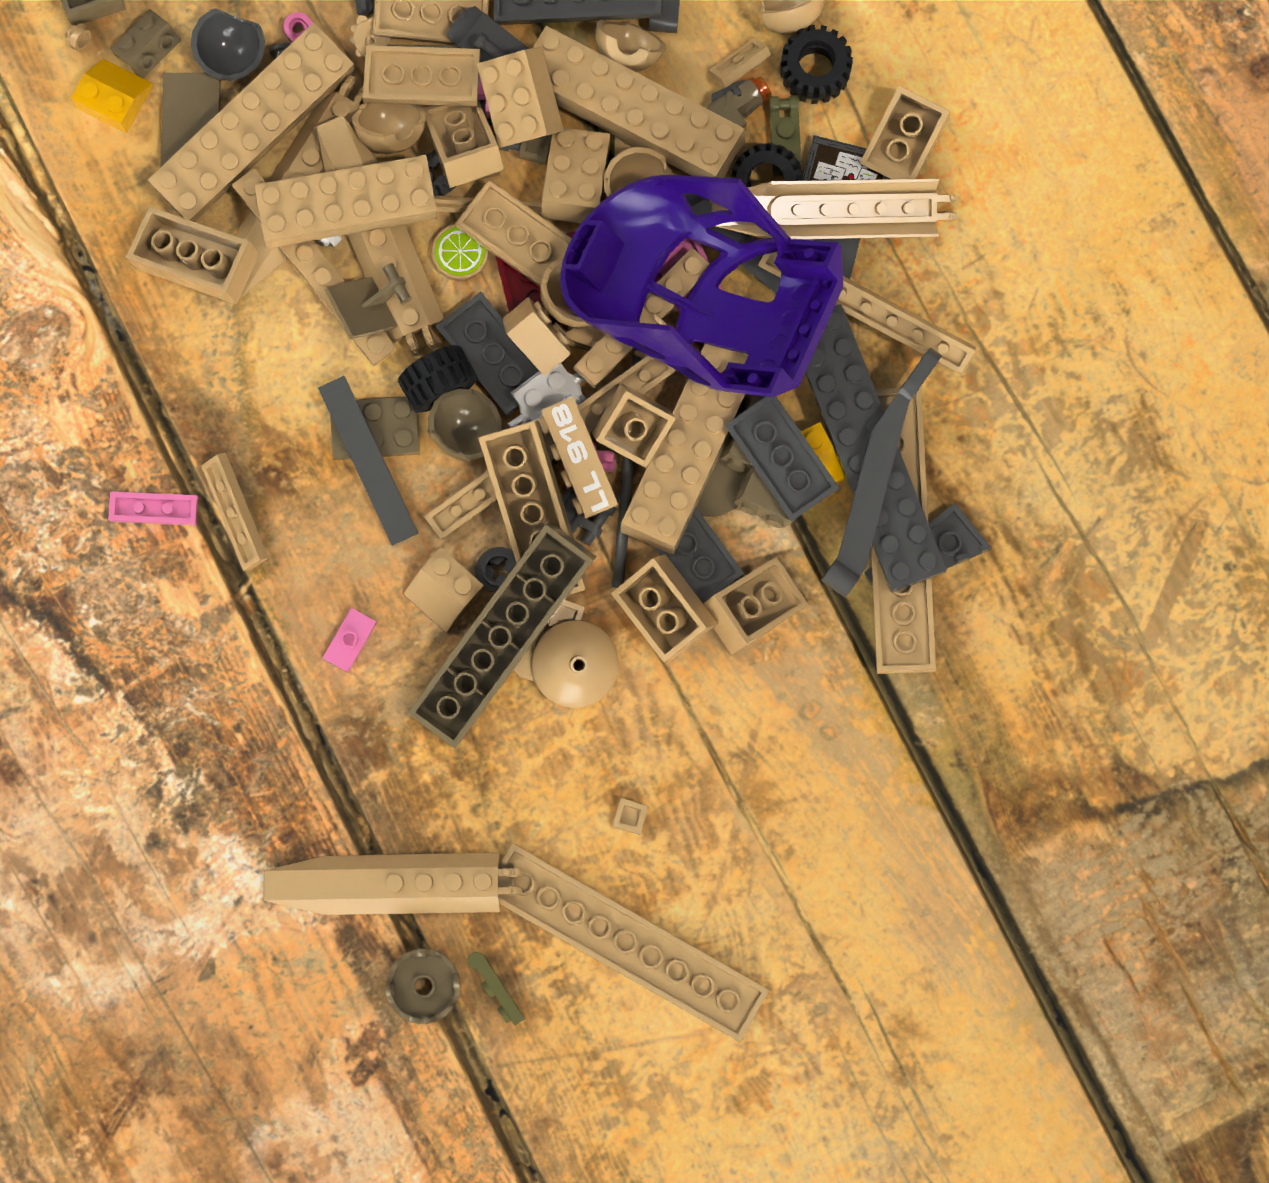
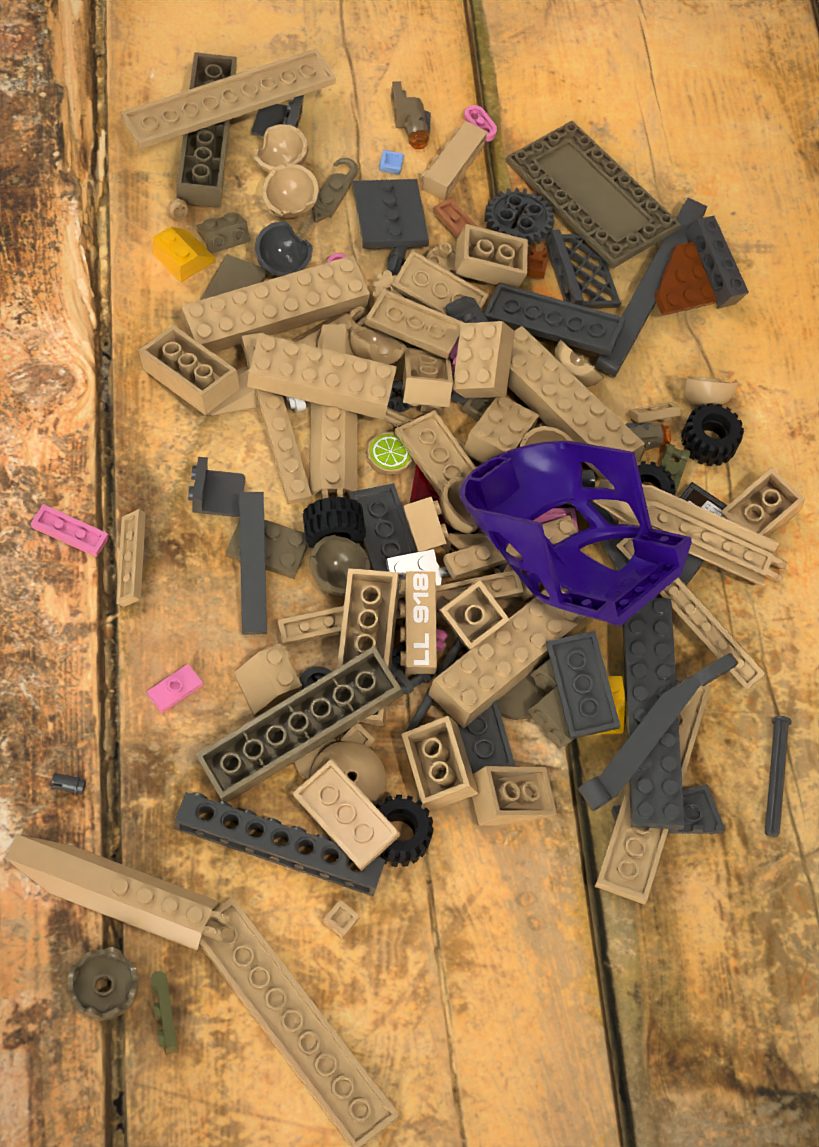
camera: 10 degrees right, 20 degrees down
(289, 388) = (215, 490): none -> dark grey bracket
(289, 794) = (68, 783): none -> dark grey pin
(364, 307) = (302, 455): dark tan plate -> none
(590, 709) = (346, 814): none -> tan tile
(638, 766) = (265, 848): none -> dark grey brick
(646, 673) = (417, 818): none -> black tyre
(1026, 458) = (777, 775): none -> dark grey axle

